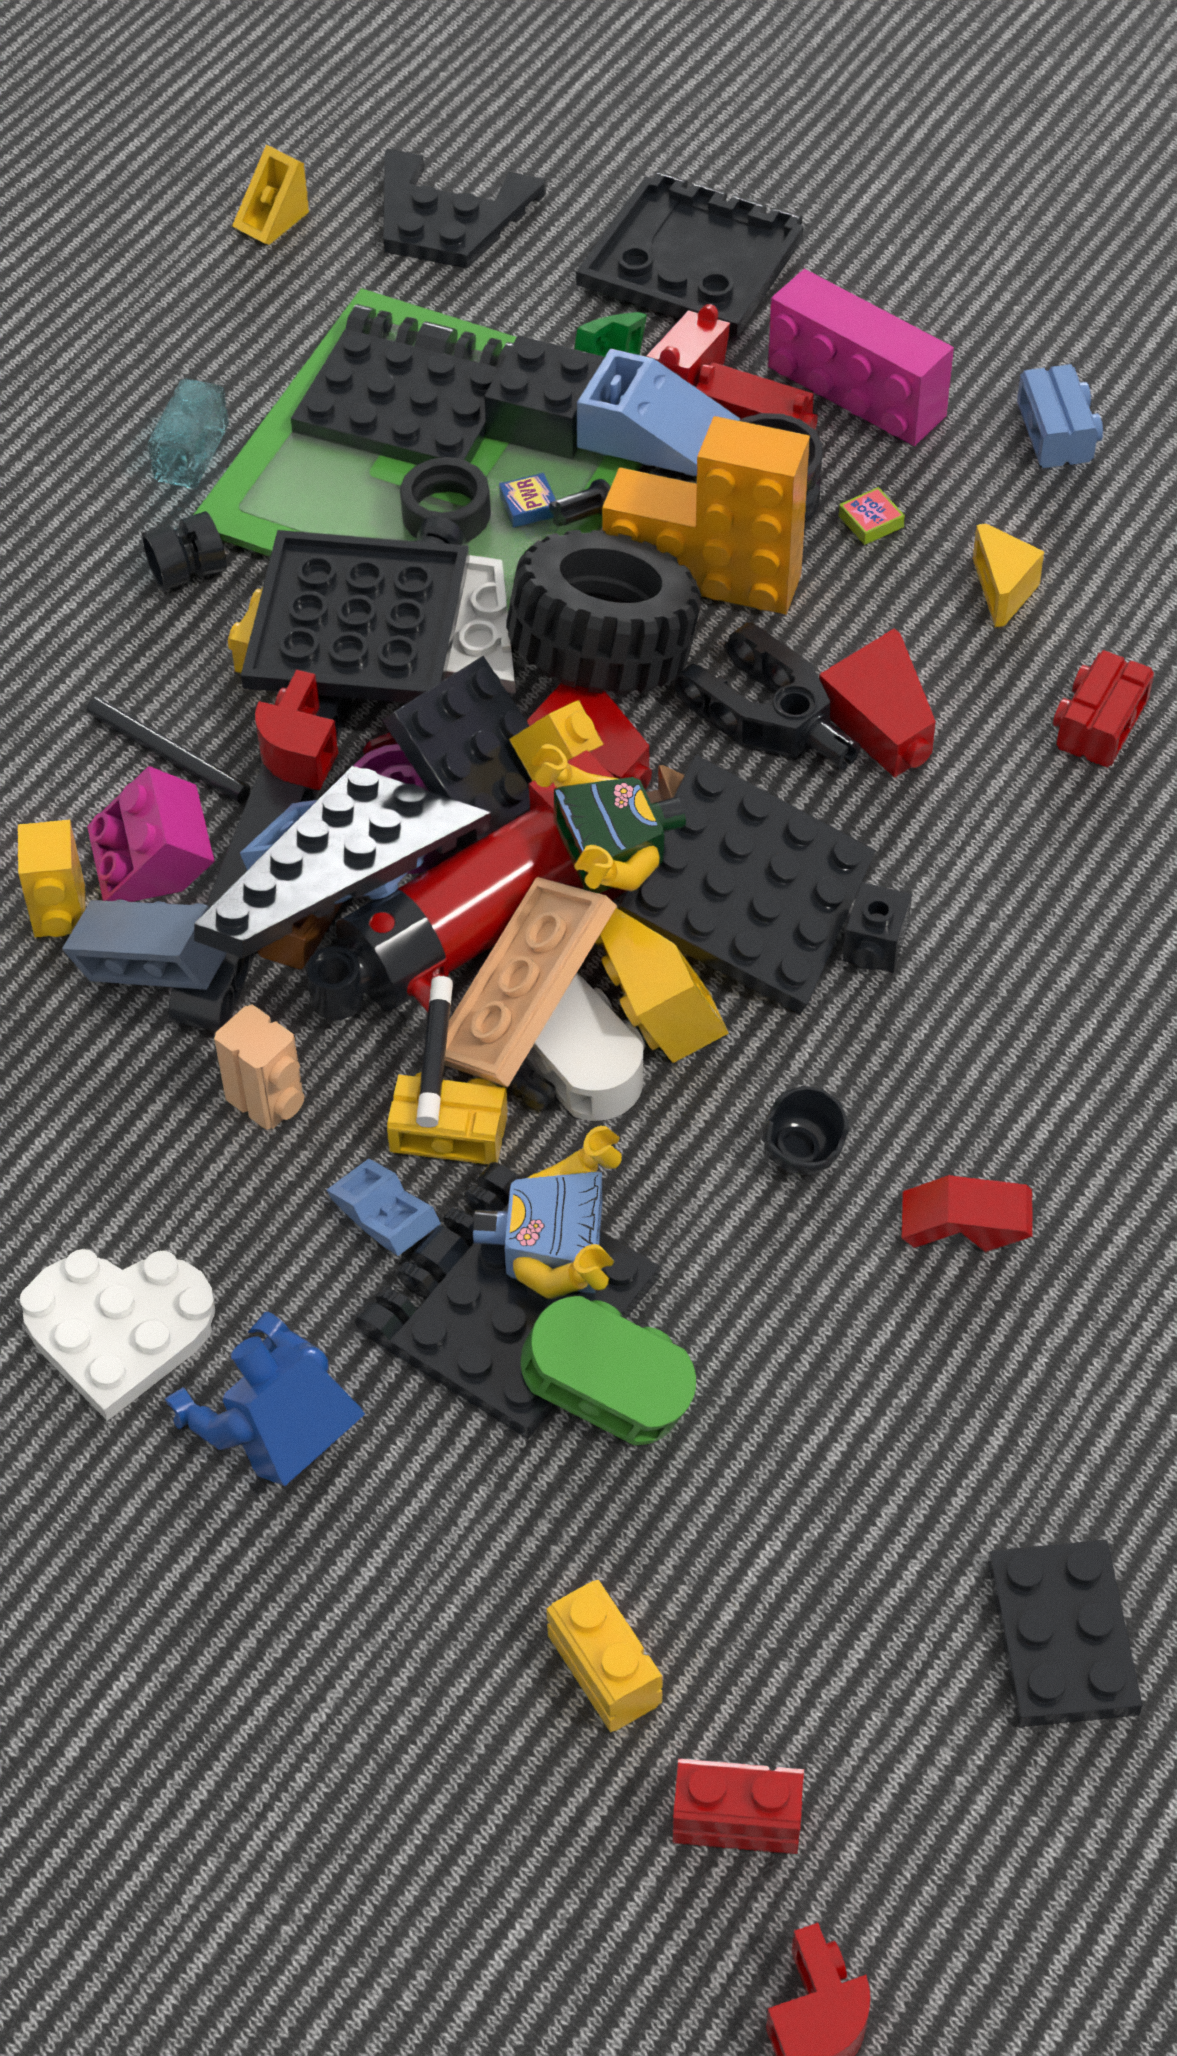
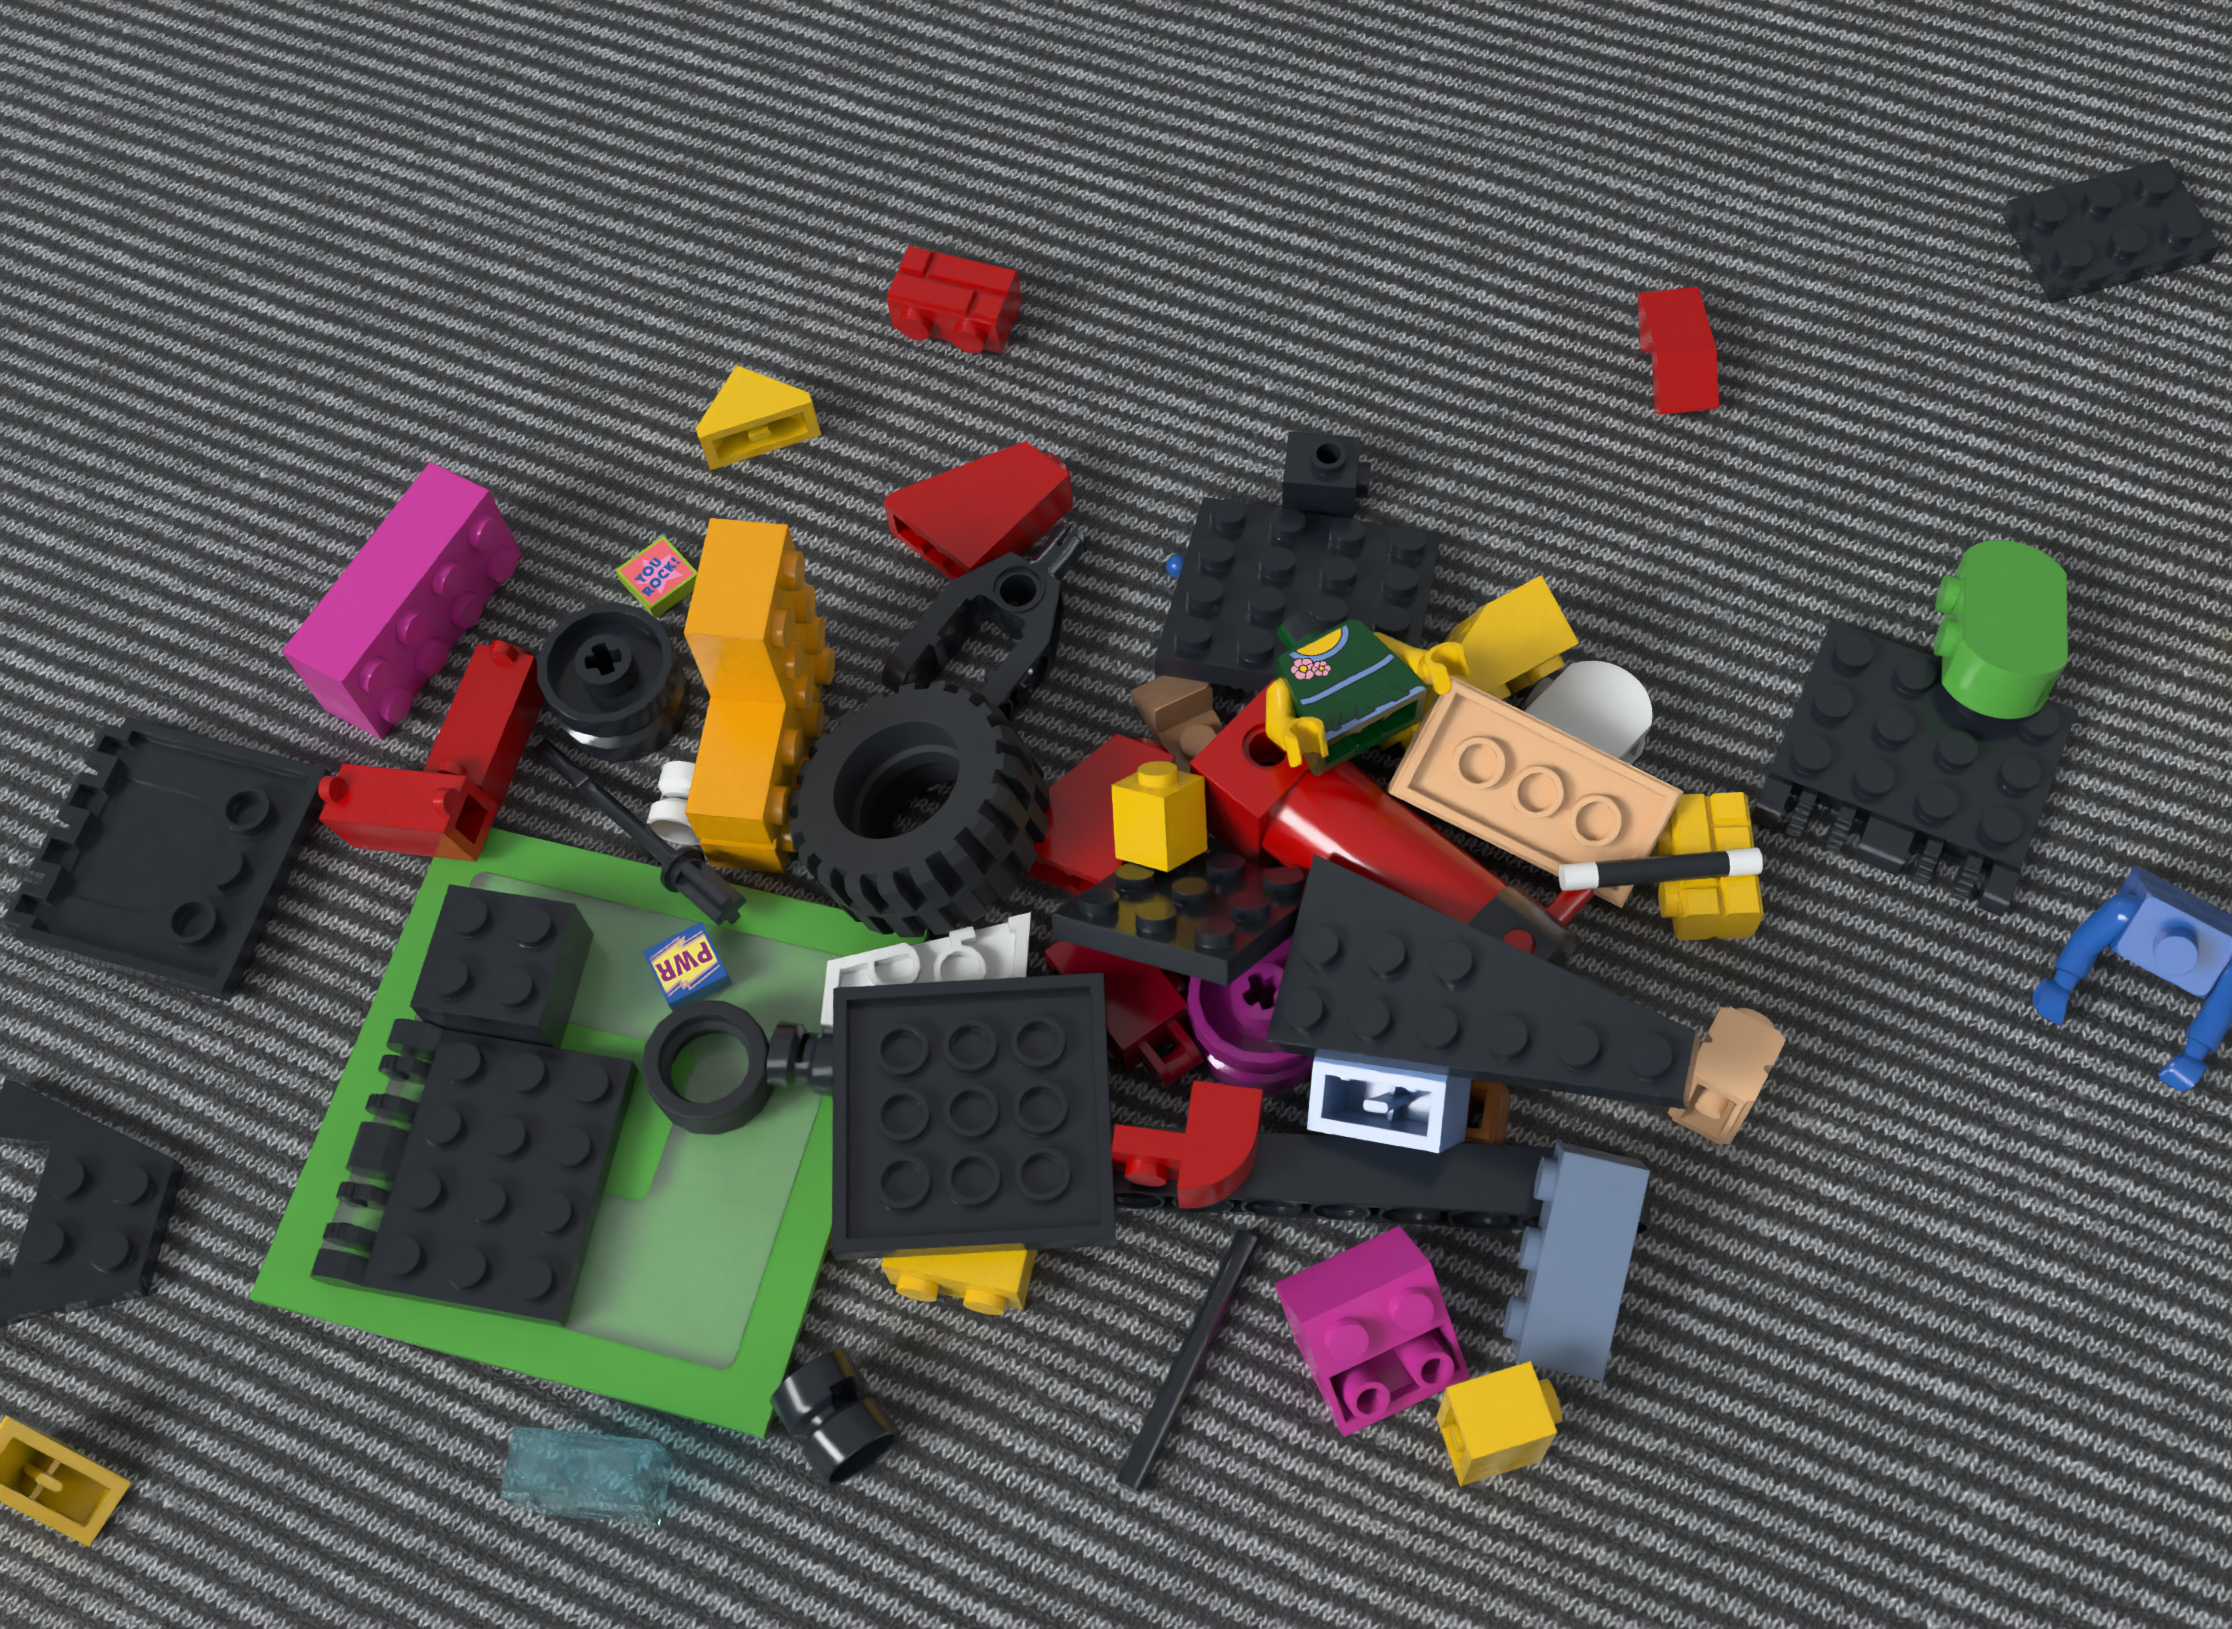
camera: 95 degrees left, 10 degrees up
(117, 1327) = (2096, 1182): white plate -> none
(382, 1207) = (1844, 916): medium blue slope -> none
(556, 1222) = (1858, 699): torso -> none
(616, 332) = (381, 908): green slope -> none
(645, 413) = (544, 818): medium blue slope -> none
(805, 1130) = (1626, 504): black hair -> none
(1058, 416) = (479, 393): medium blue brick -> none

